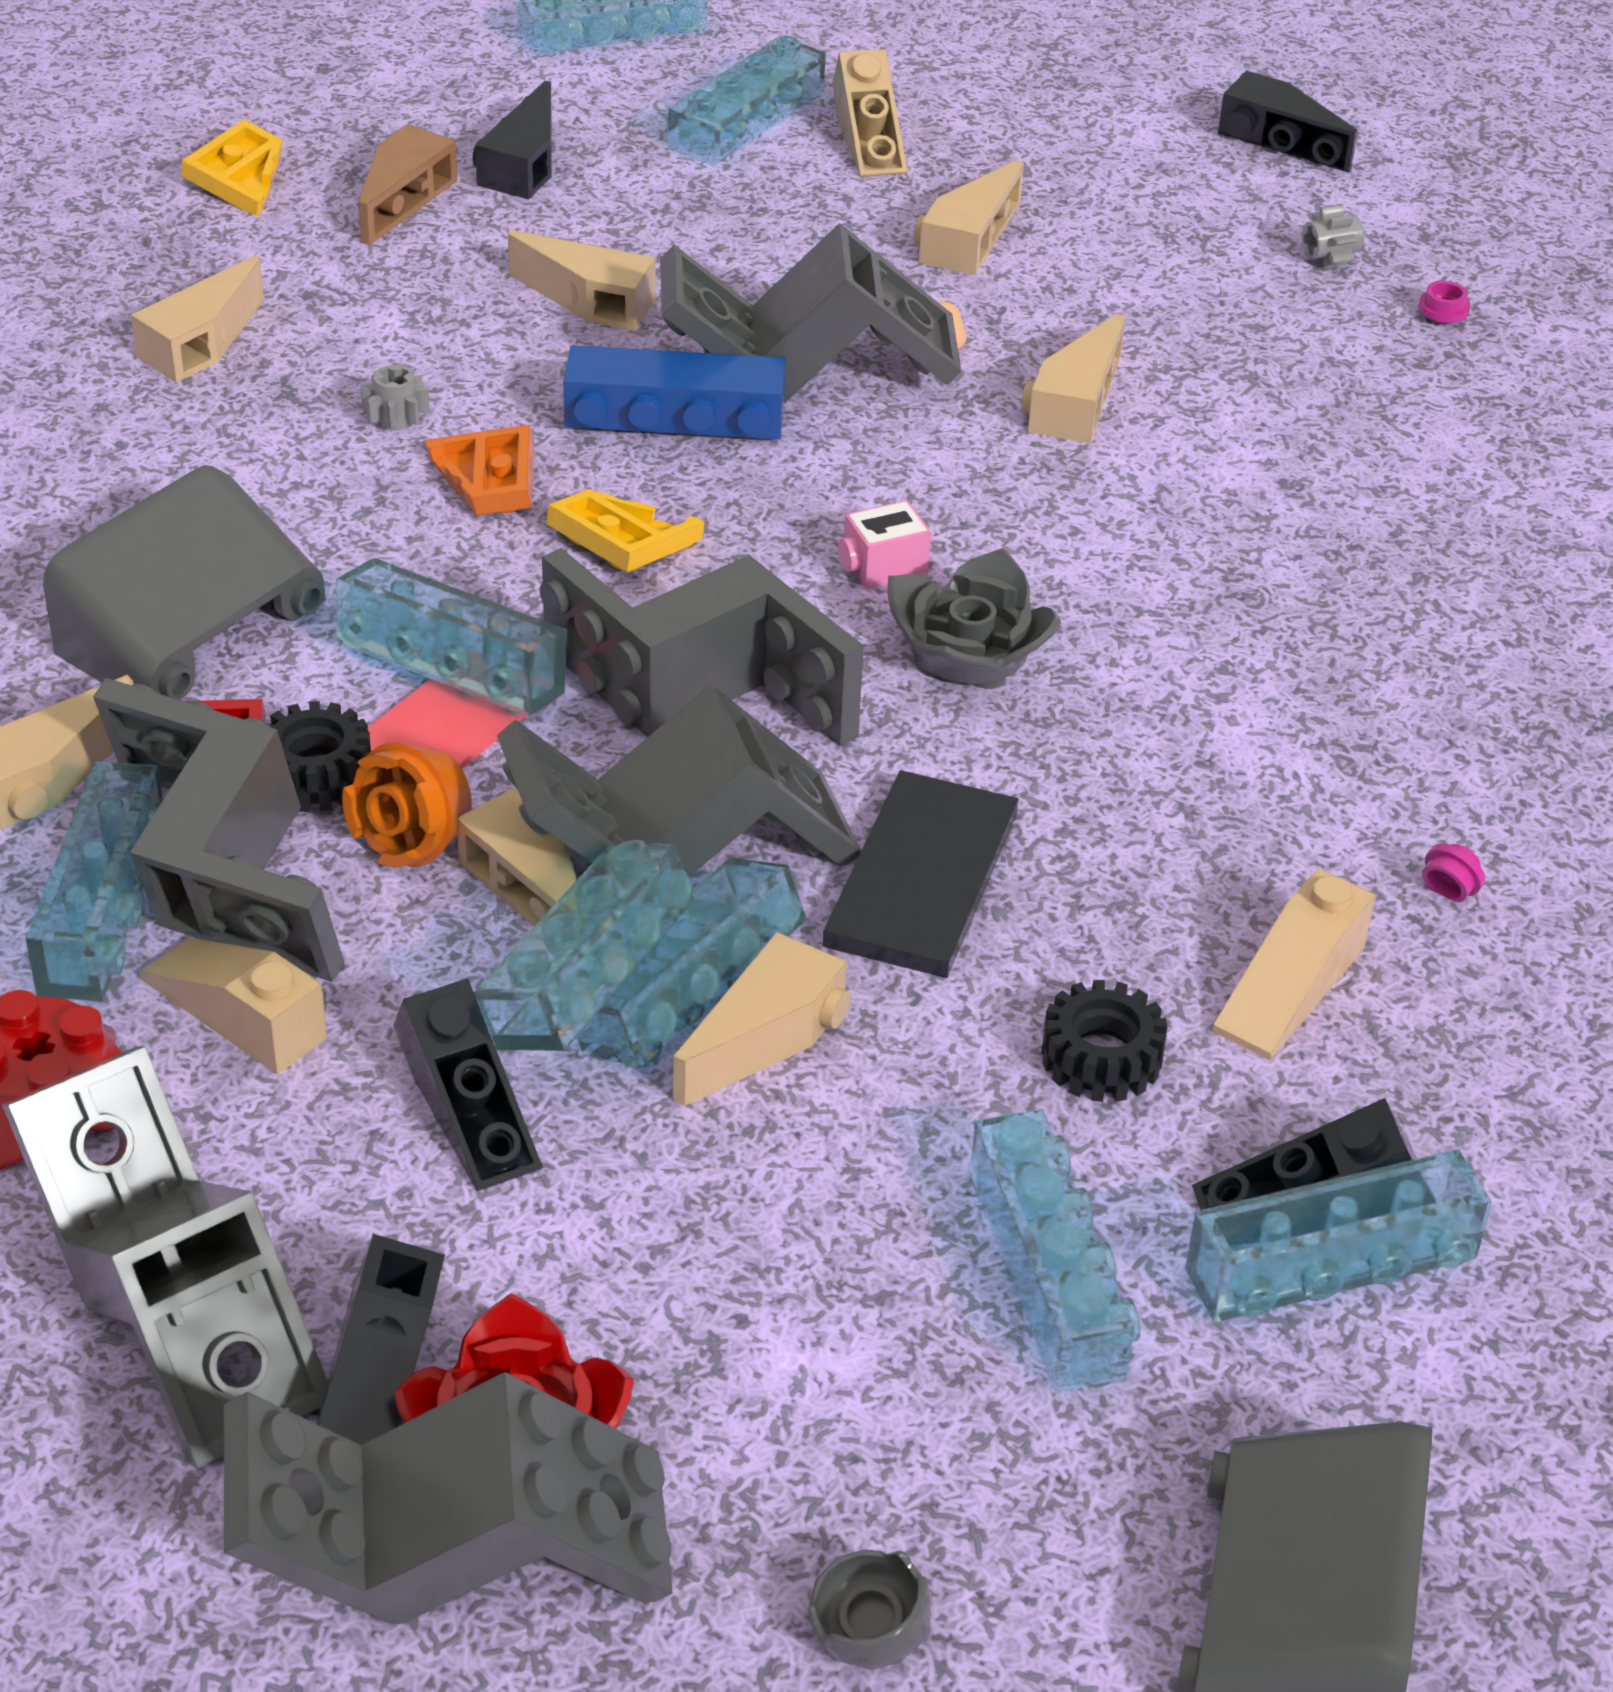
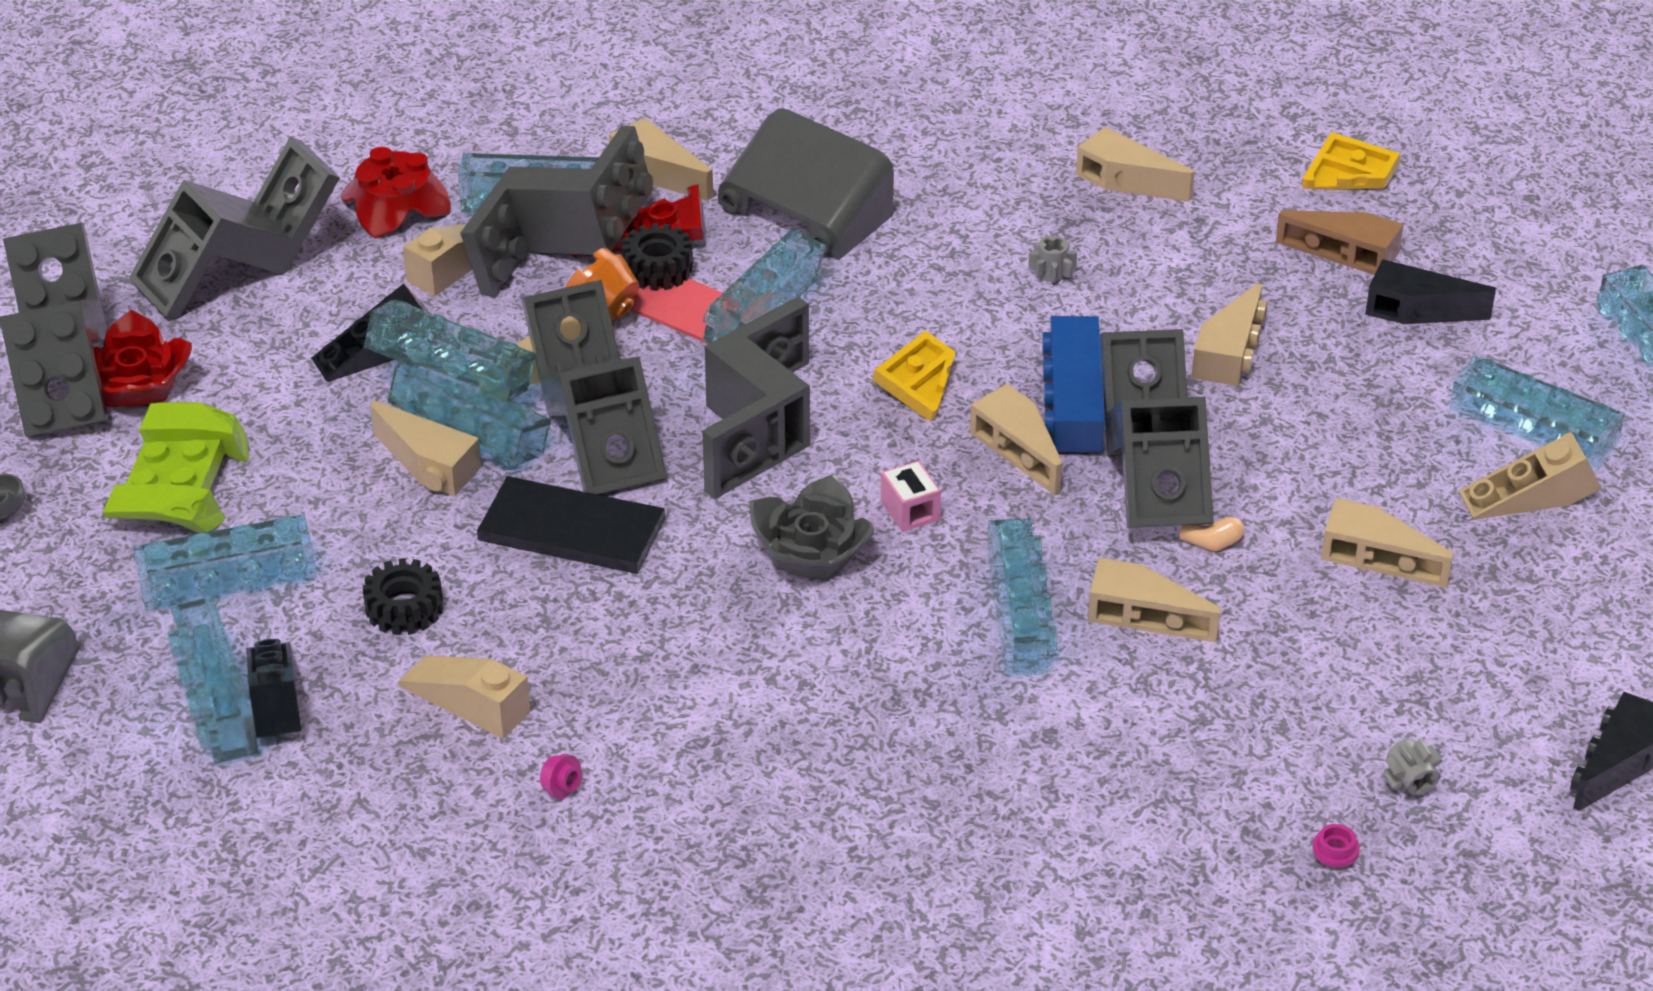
camera: 90 degrees right, 0 degrees up
(379, 1338) = (184, 311): black slope -> none
(488, 467) = (979, 312): orange wing -> none
(768, 448) = (1016, 431): none -> tan slope
(799, 1342) = (179, 466): none -> lime piece
(1083, 468) = (1018, 597): none -> clear light blue brick

